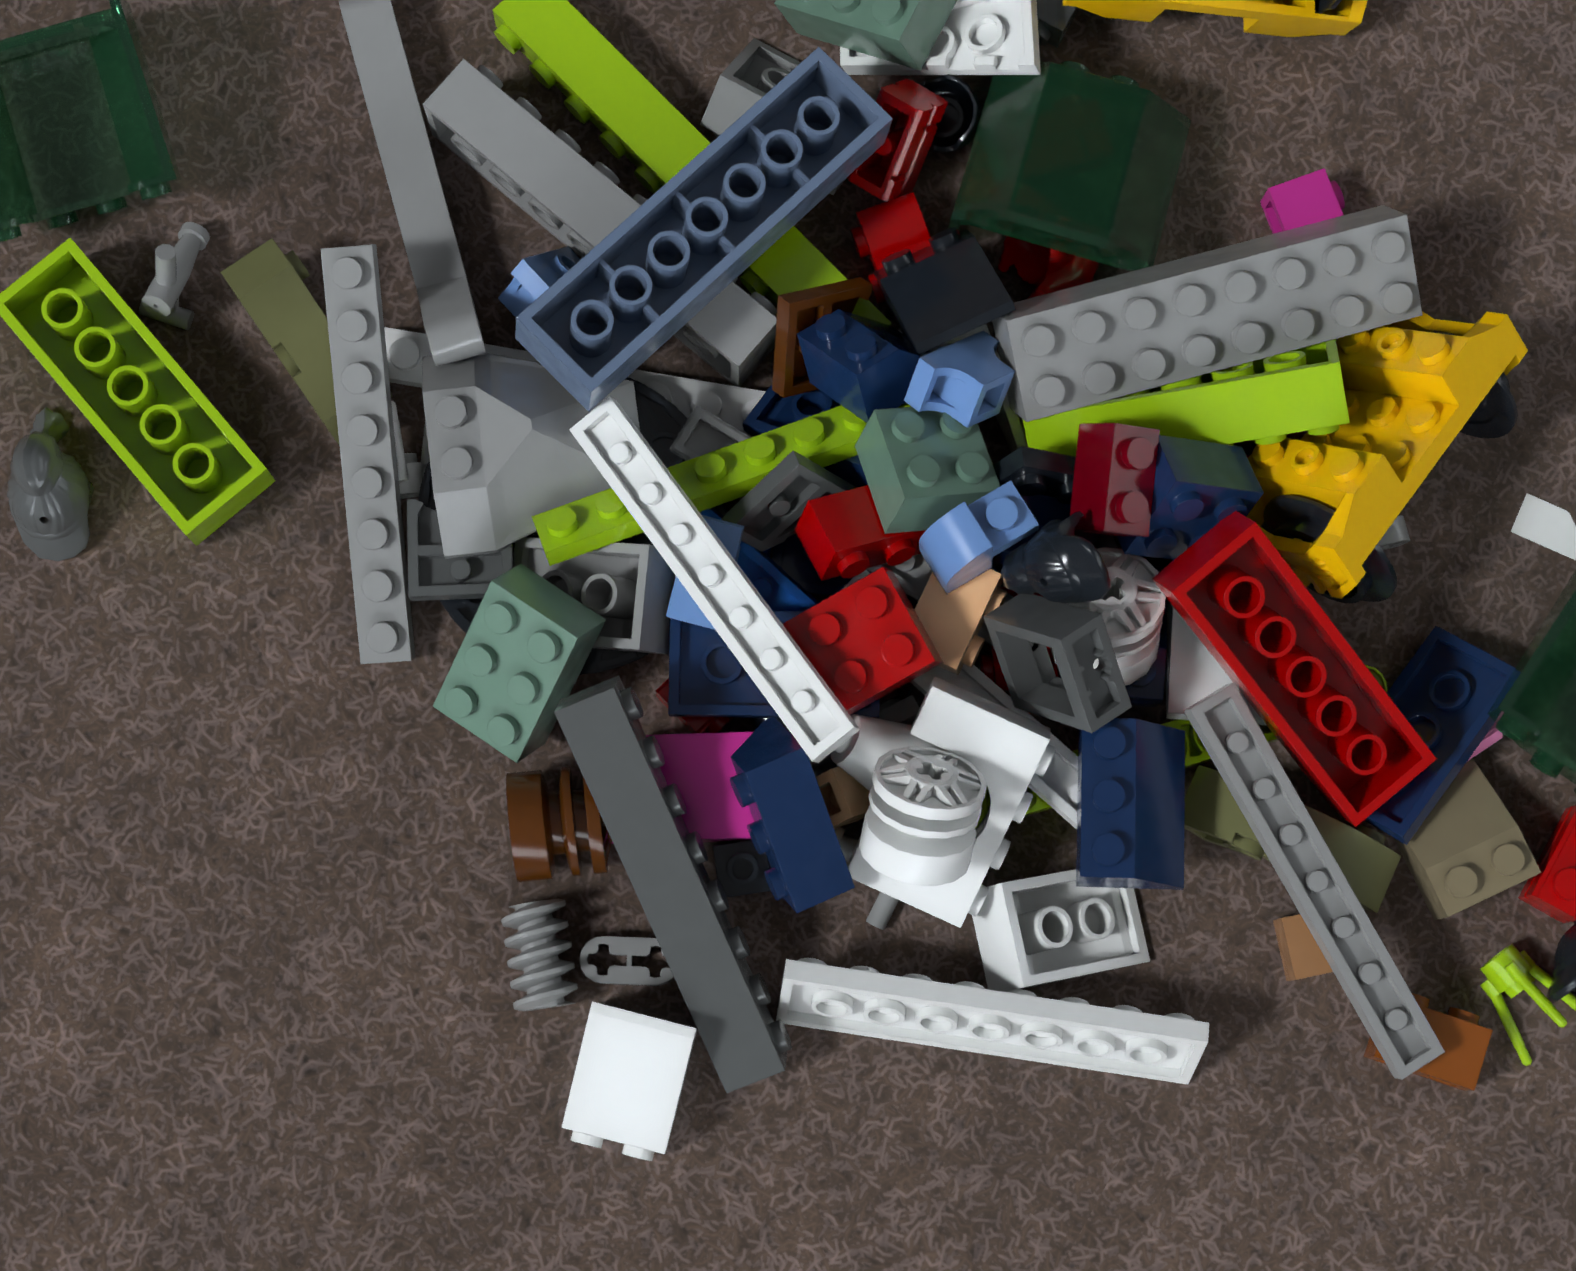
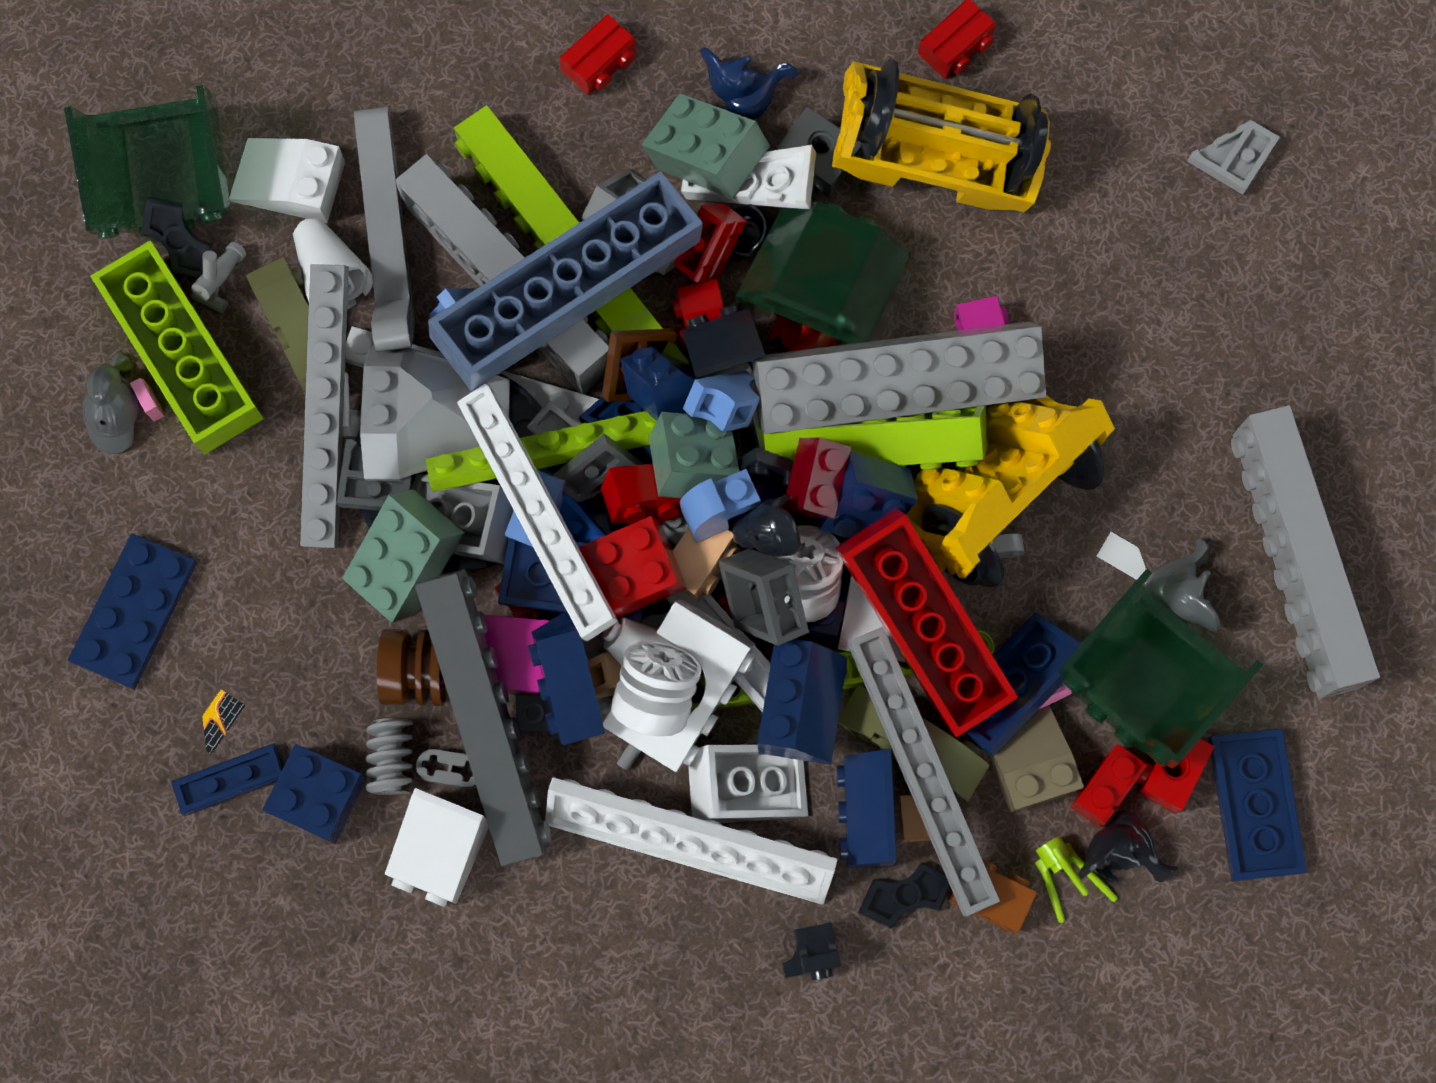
camera: 15 degrees right, 5 degrees down
(89, 209) = (167, 224): none -> black tile
(101, 474) = (147, 399): none -> bright pink tile
(129, 790) = (132, 611): none -> dark blue plate
(254, 112) = (289, 176): none -> white slope
(282, 930) = (219, 718): none -> sticker
(310, 1018) = (228, 779): none -> dark blue tile
(325, 218) = (320, 245): none -> white cone
(440, 1024) = (315, 793): none -> dark blue brick
(1187, 1157) = (814, 953): none -> black brick
(1238, 943) = (867, 810): none -> dark blue slope
(1324, 1045) = (890, 900): none -> black tile

